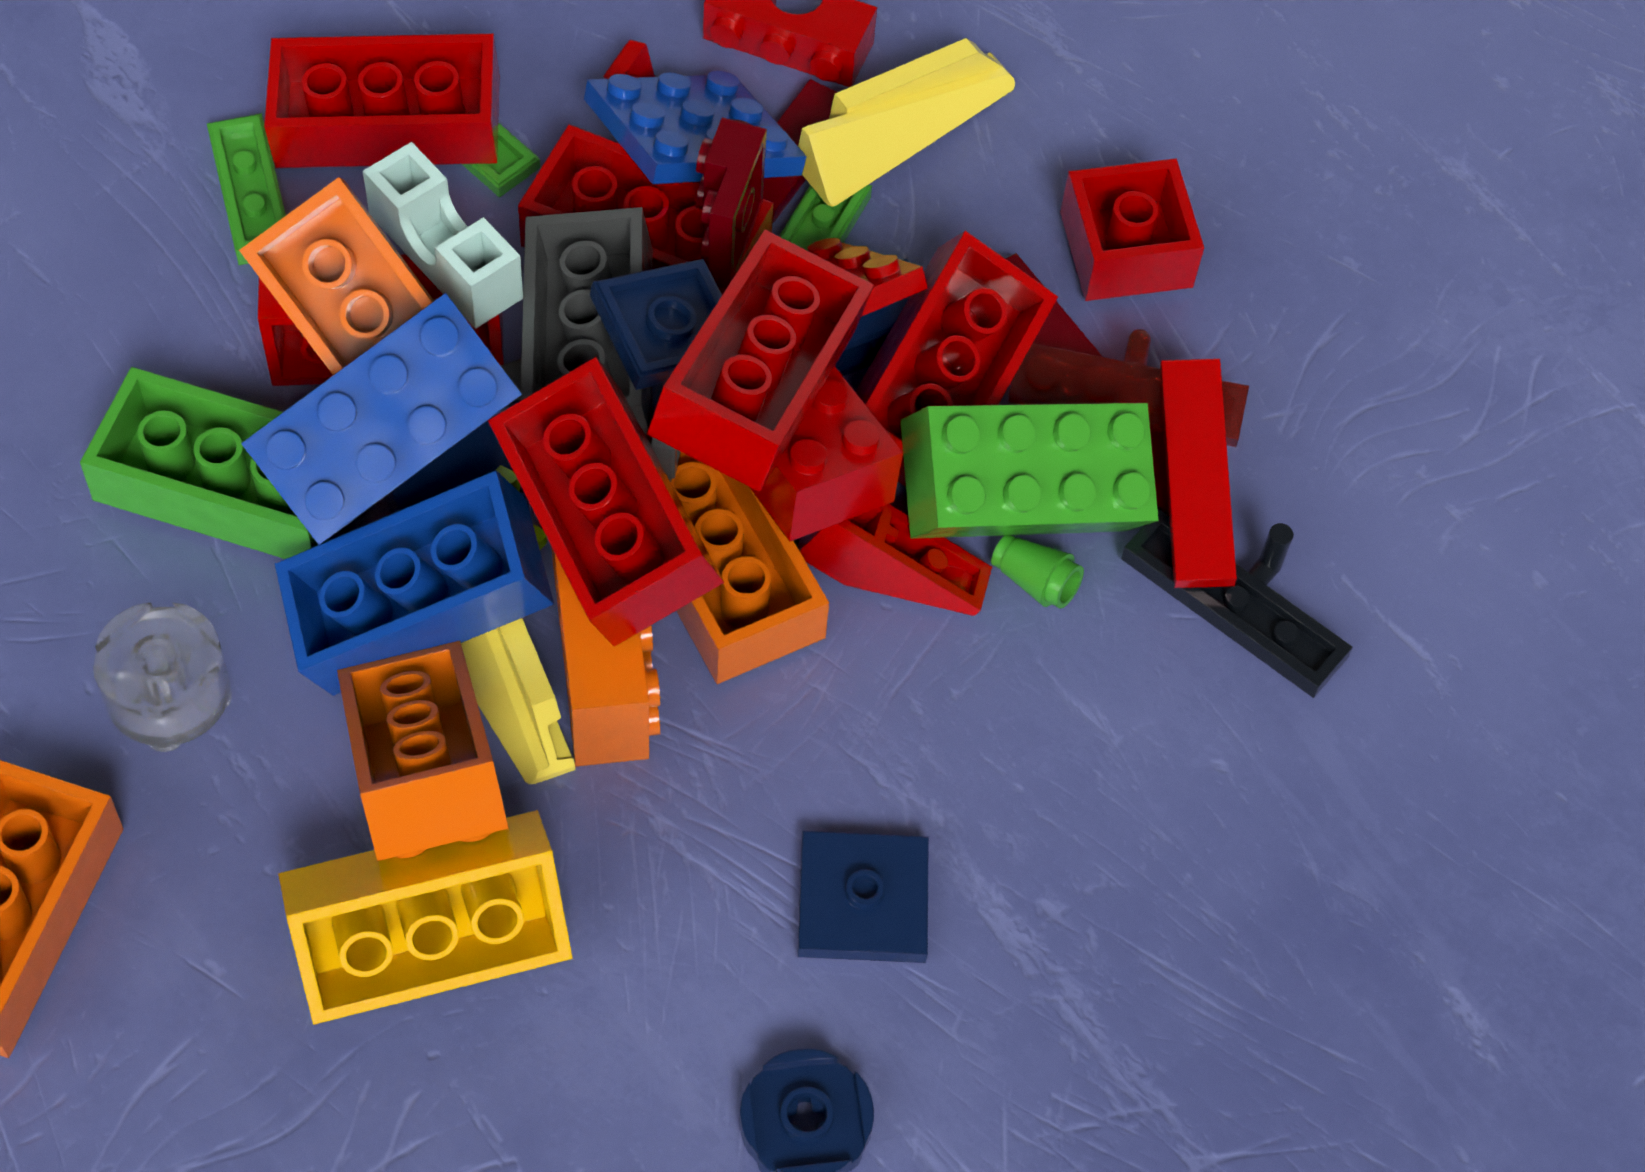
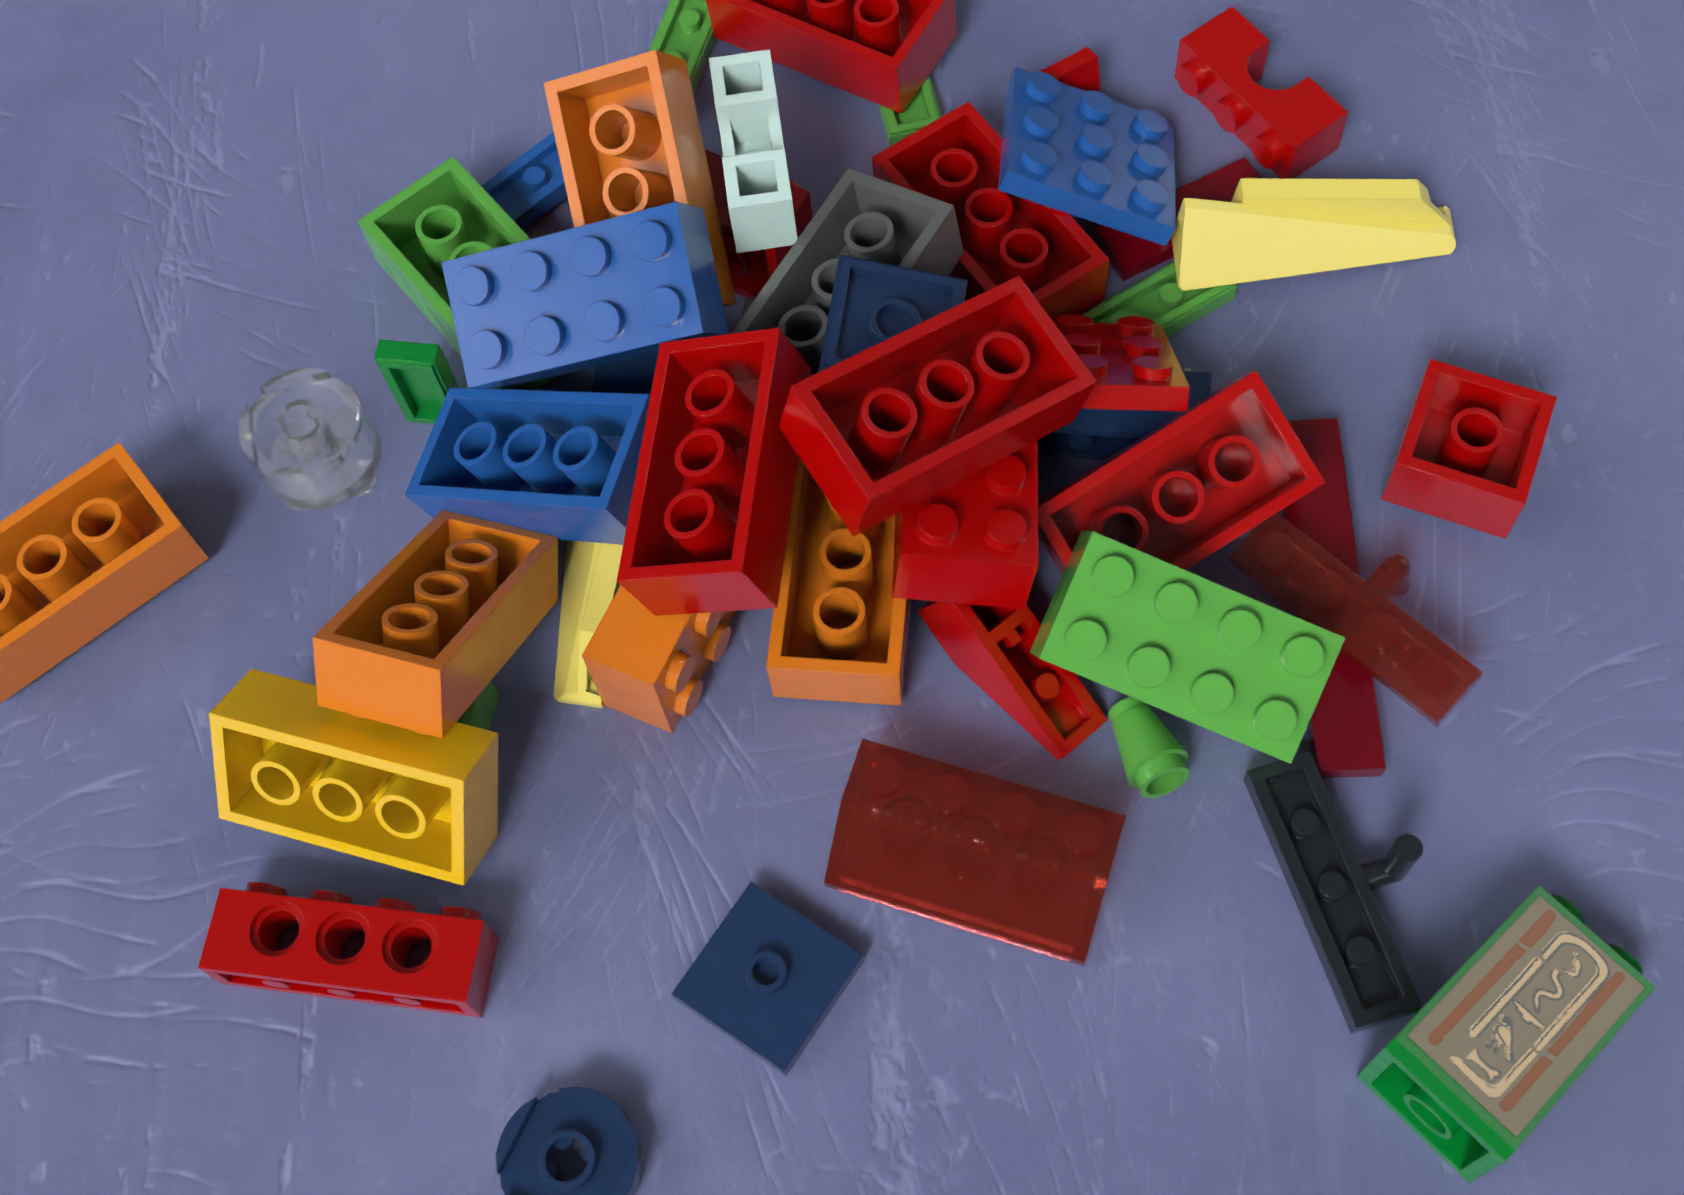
camera: 45 degrees right, 5 degrees up
(208, 348) = (530, 183): none -> blue plate
(238, 574) = (416, 377): none -> green tile
(488, 1095) = (249, 922): none -> red brick
(730, 194) = (1058, 225): dark red plate -> none
(961, 712) = (973, 851): none -> clear red slope
(1197, 474) = (1363, 736): red tile -> none
(1419, 638) = (1507, 1034): none -> slope

